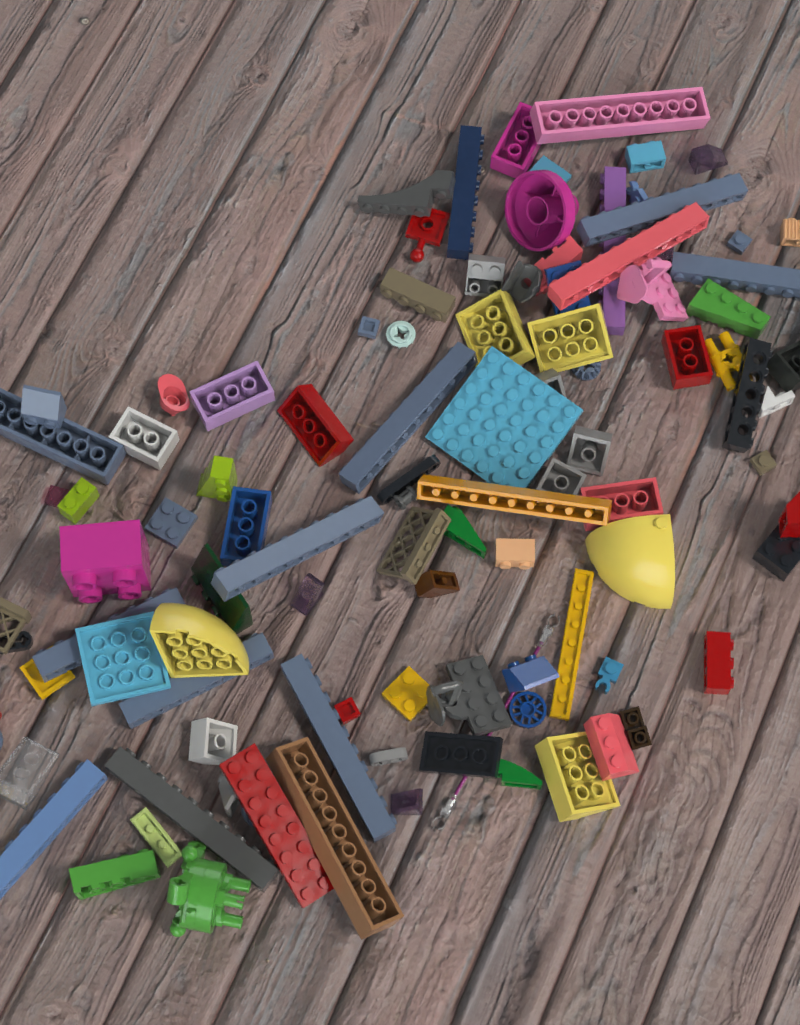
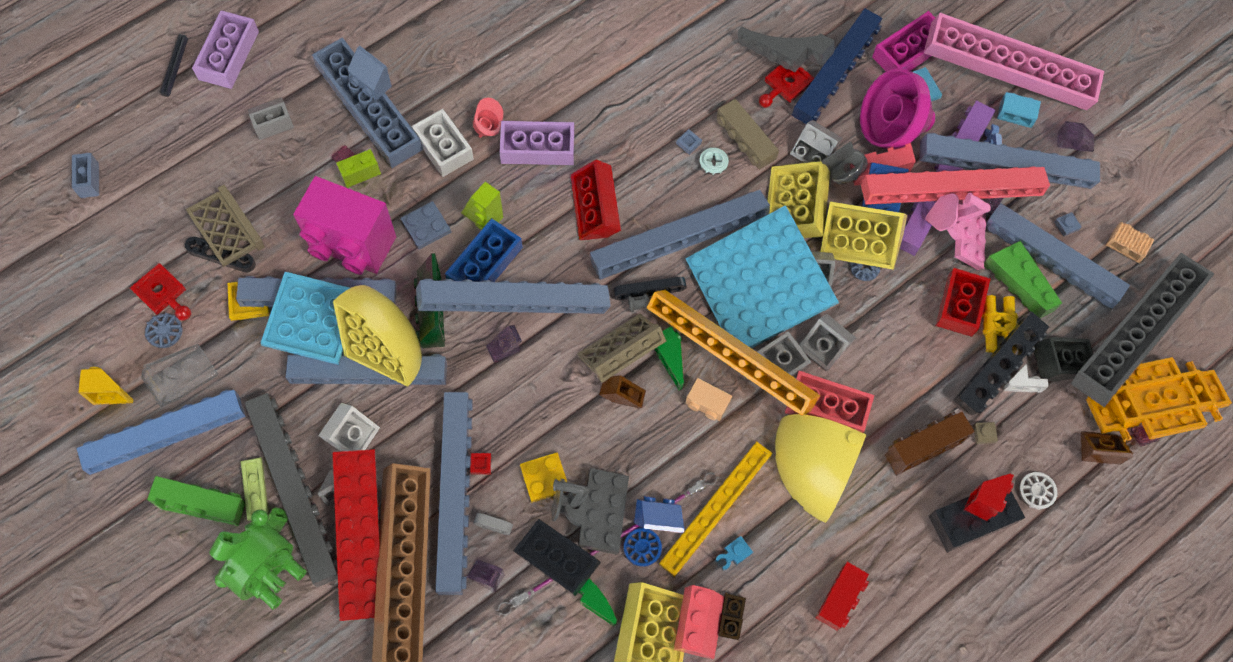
camera: 25 degrees right, 0 degrees up
(721, 495) = (928, 443): none -> reddish brown brick

